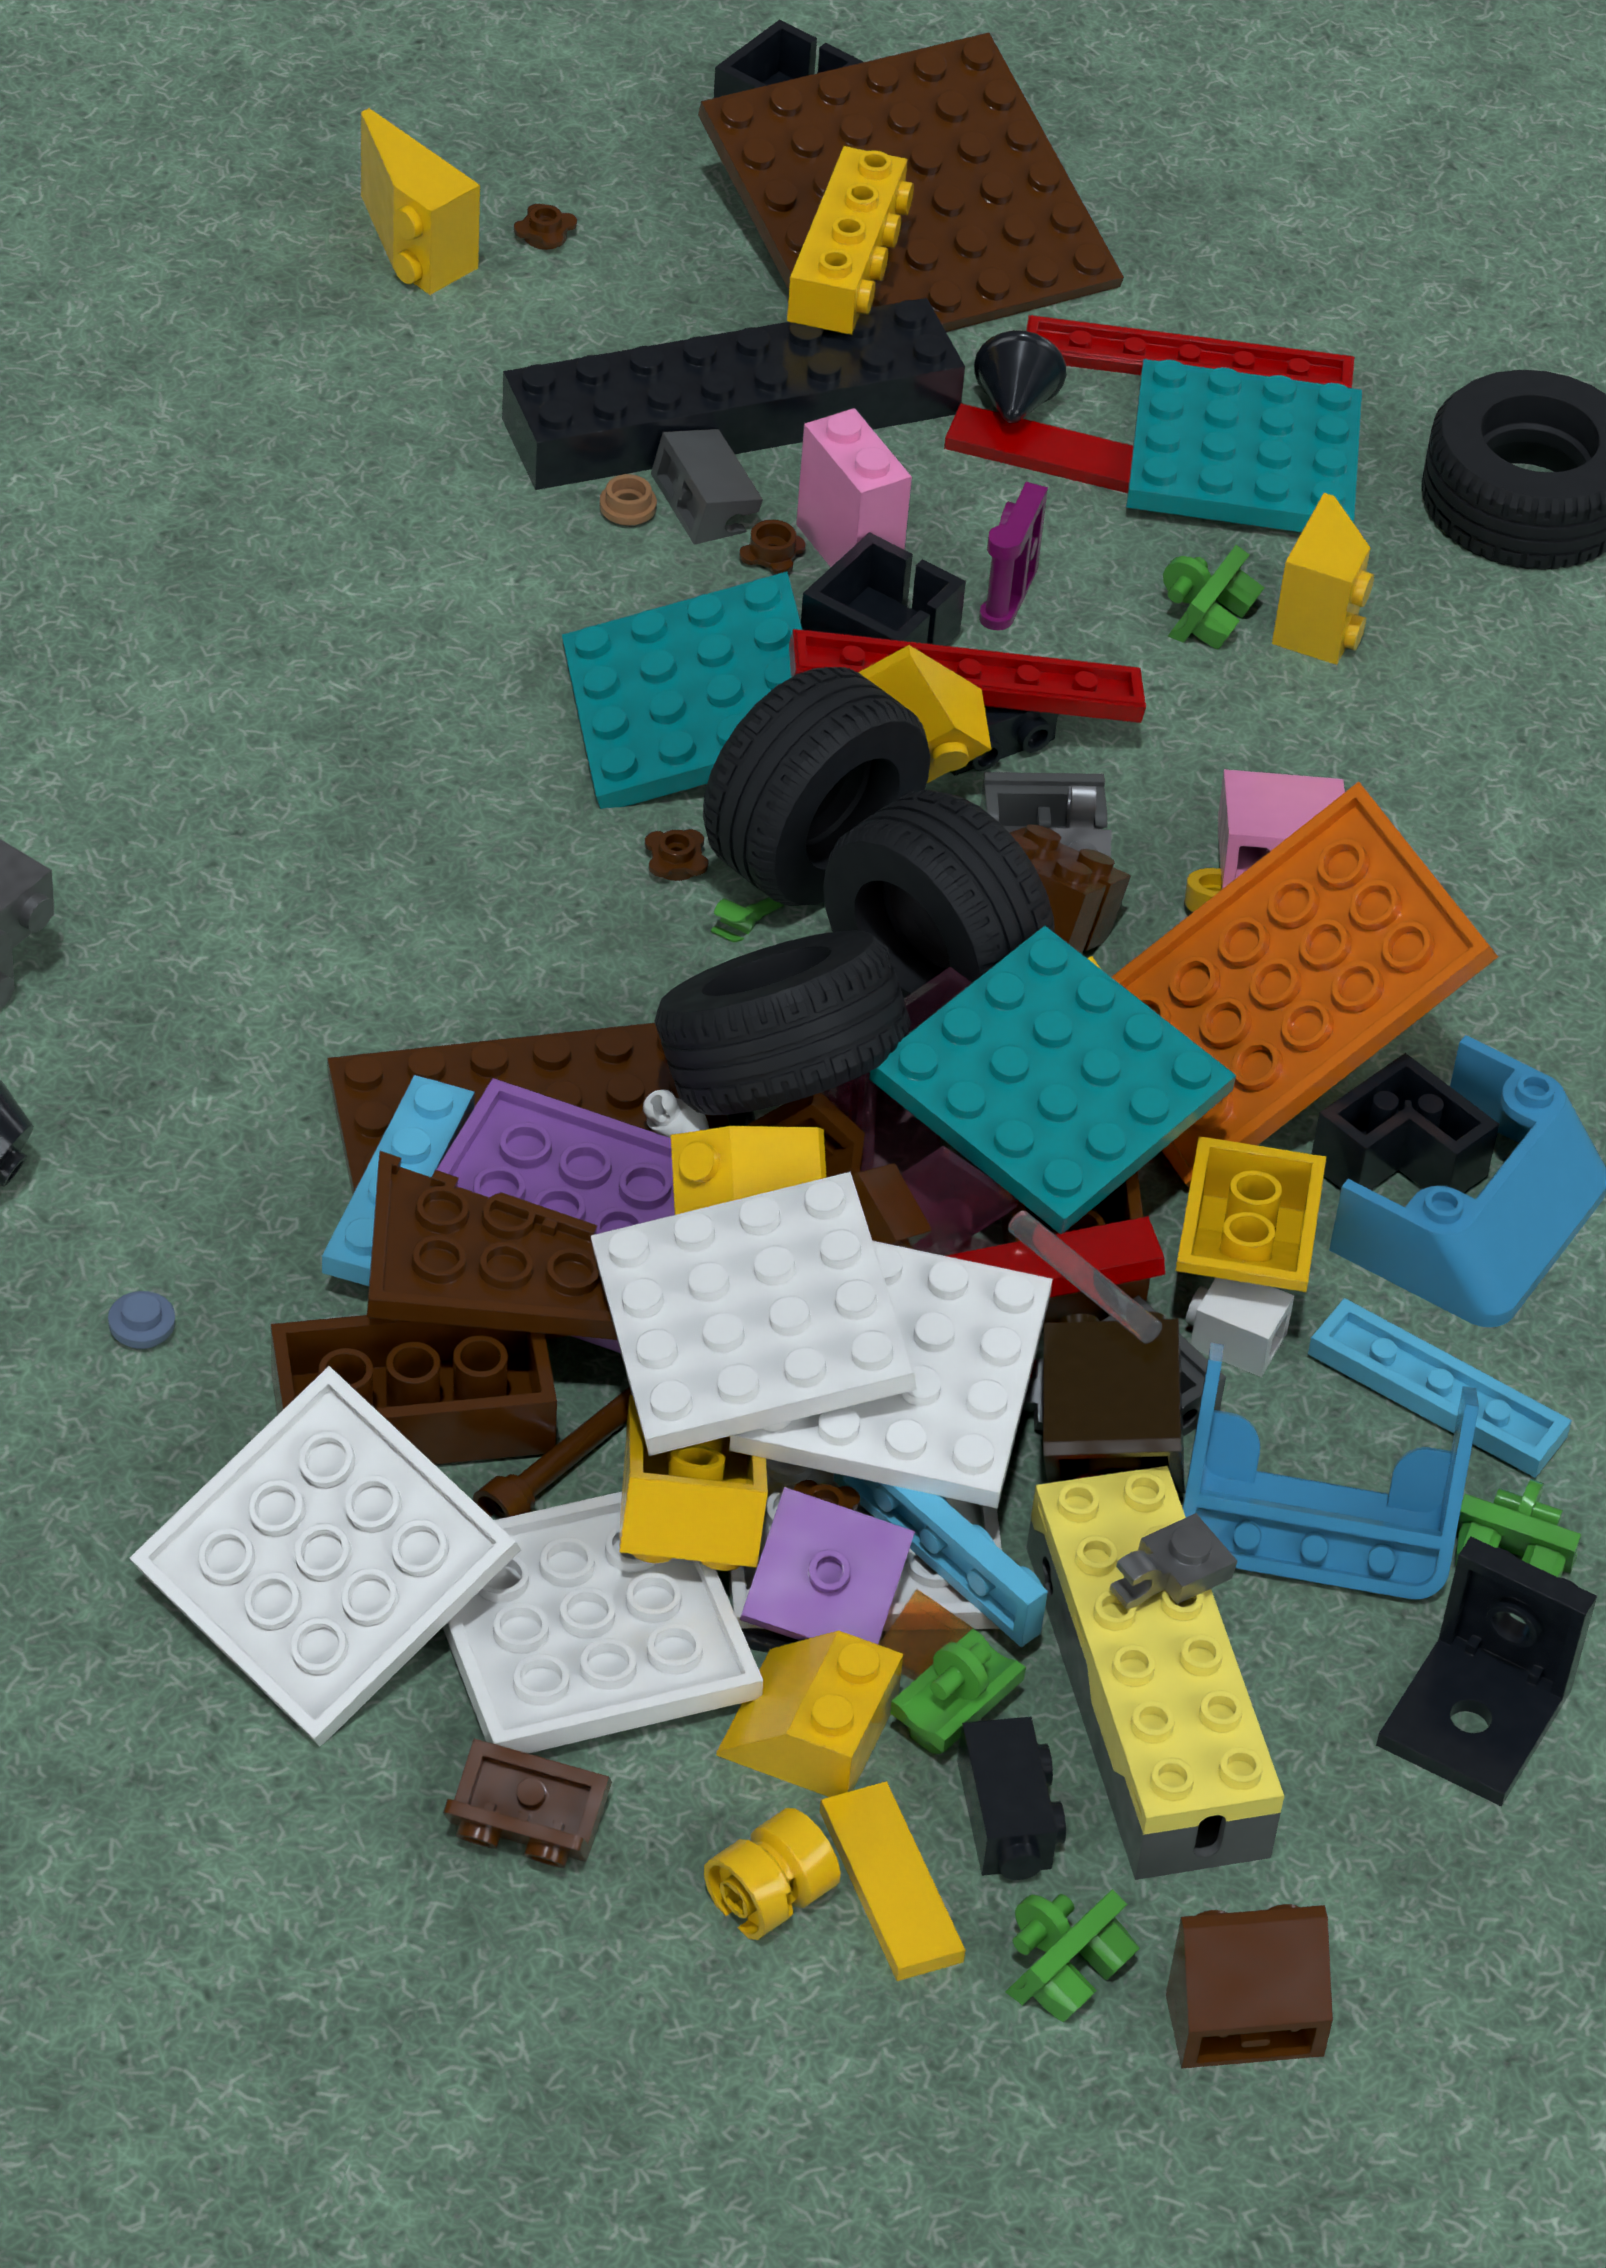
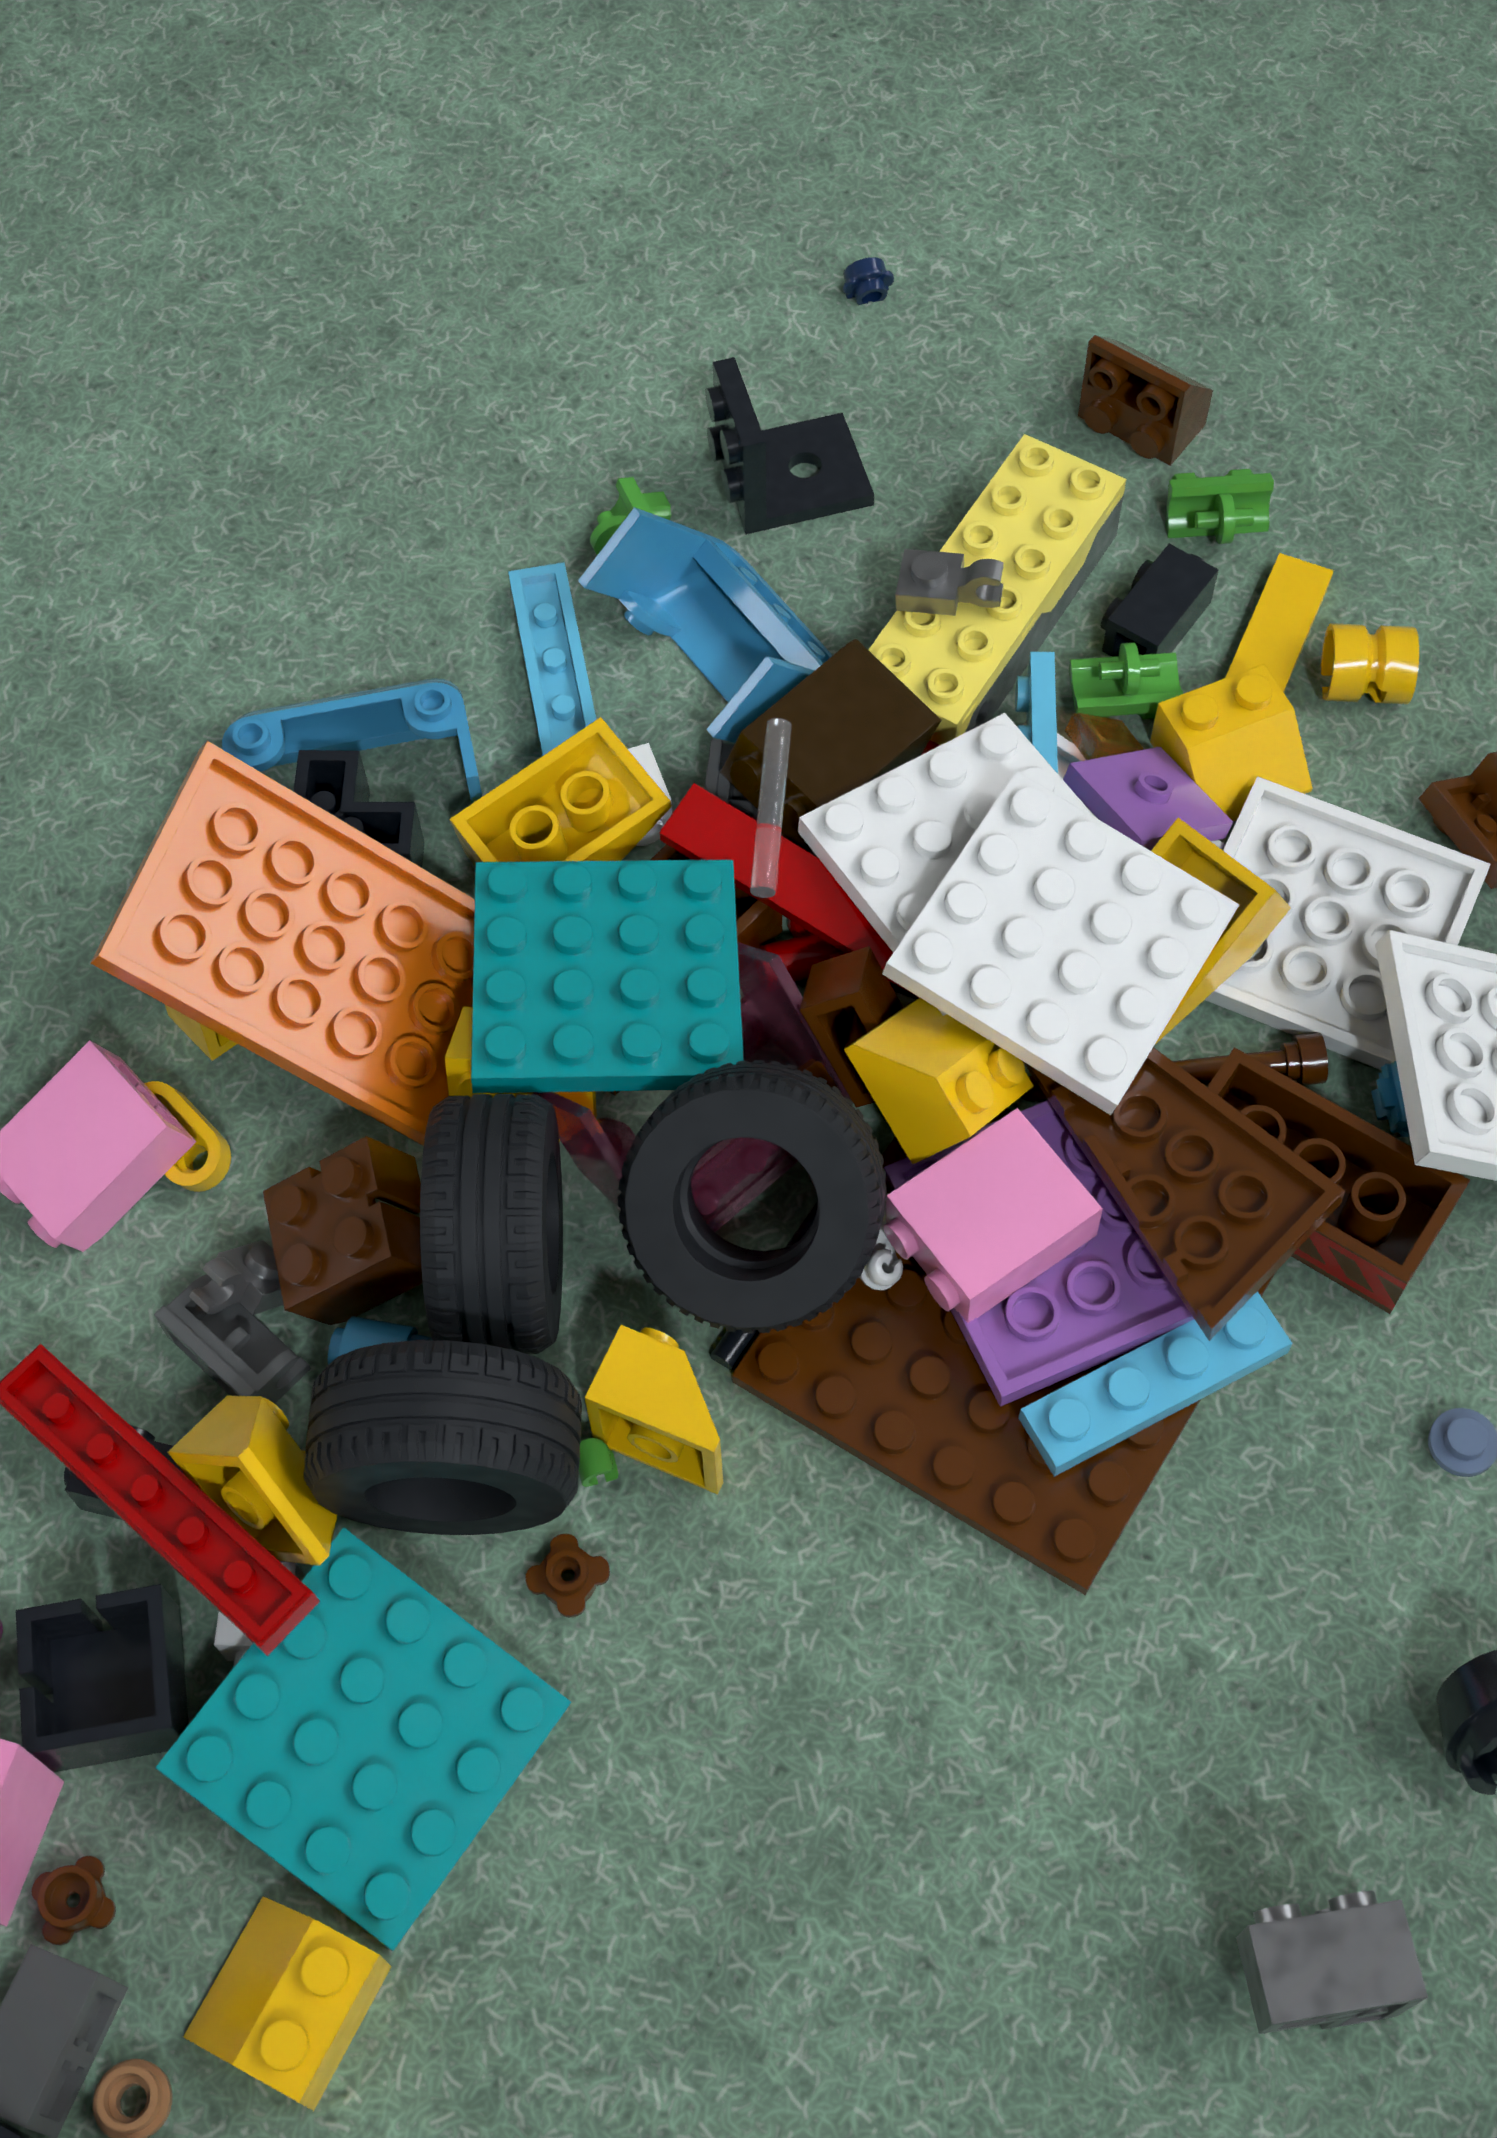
camera: 130 degrees left, 15 degrees up
(585, 571) = (288, 2001): none -> yellow slope
(610, 1146) = (990, 1216): none -> bright pink brick
(704, 919) = (653, 1408): none -> yellow slope

